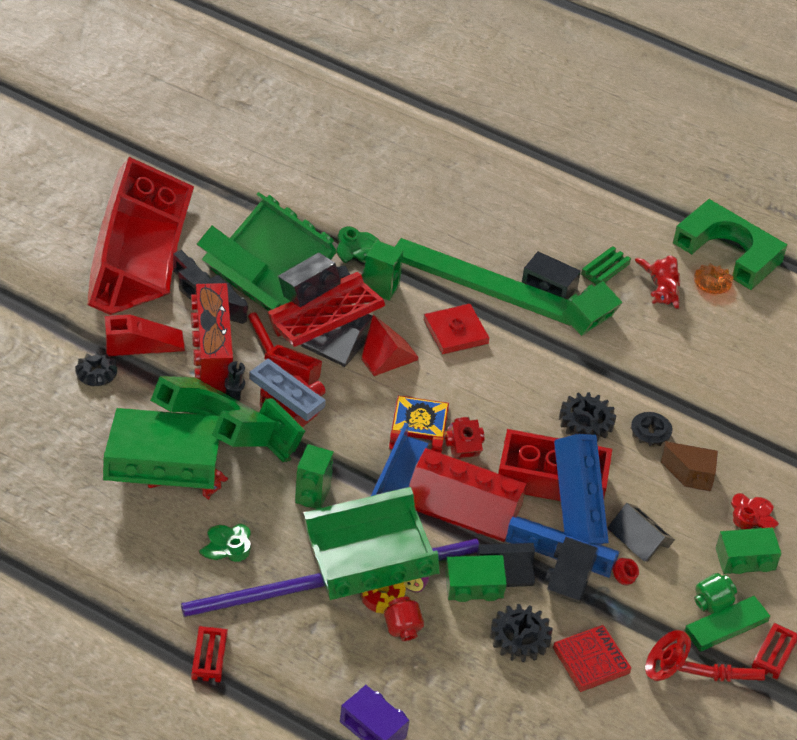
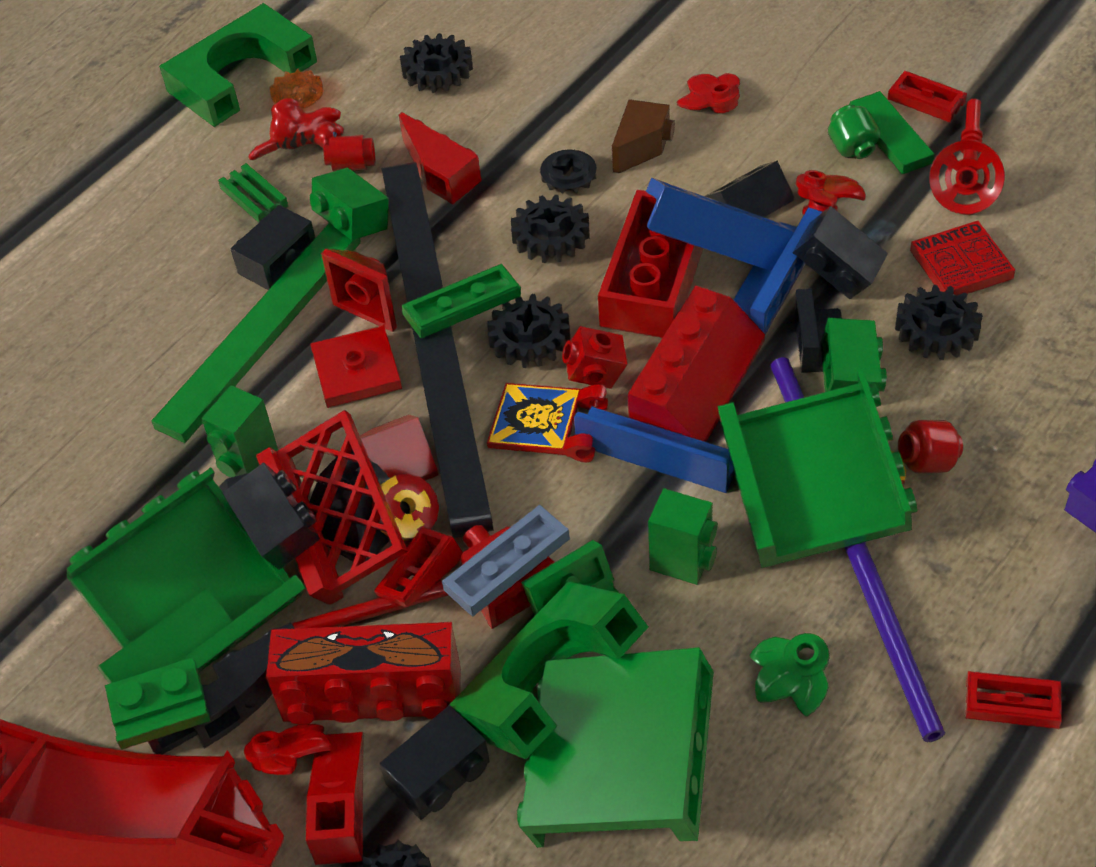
camera: 75 degrees left, 5 degrees up
(152, 366) = (435, 763): none -> black brick
(172, 315) = (278, 752): none -> red plate
(191, 252) = (157, 703): none -> green plate
(234, 381) = (474, 639): black axle -> none
(348, 355) = (420, 498): none -> piece
(354, 246) = (151, 477): green plate -> none
(479, 361) = (437, 357): none -> black beam
(490, 407) = (528, 331): none -> black gear
(502, 365) = (461, 300): none -> green tile
(517, 319) = (359, 286): none -> red slope
(645, 354) = (442, 163): none -> red slope
(647, 308) = (350, 151): none -> red brick
(652, 577) = (828, 188): none -> red plate
(748, 550) = (783, 98): green brick -> none
(751, 348) = (436, 62): none -> black gear

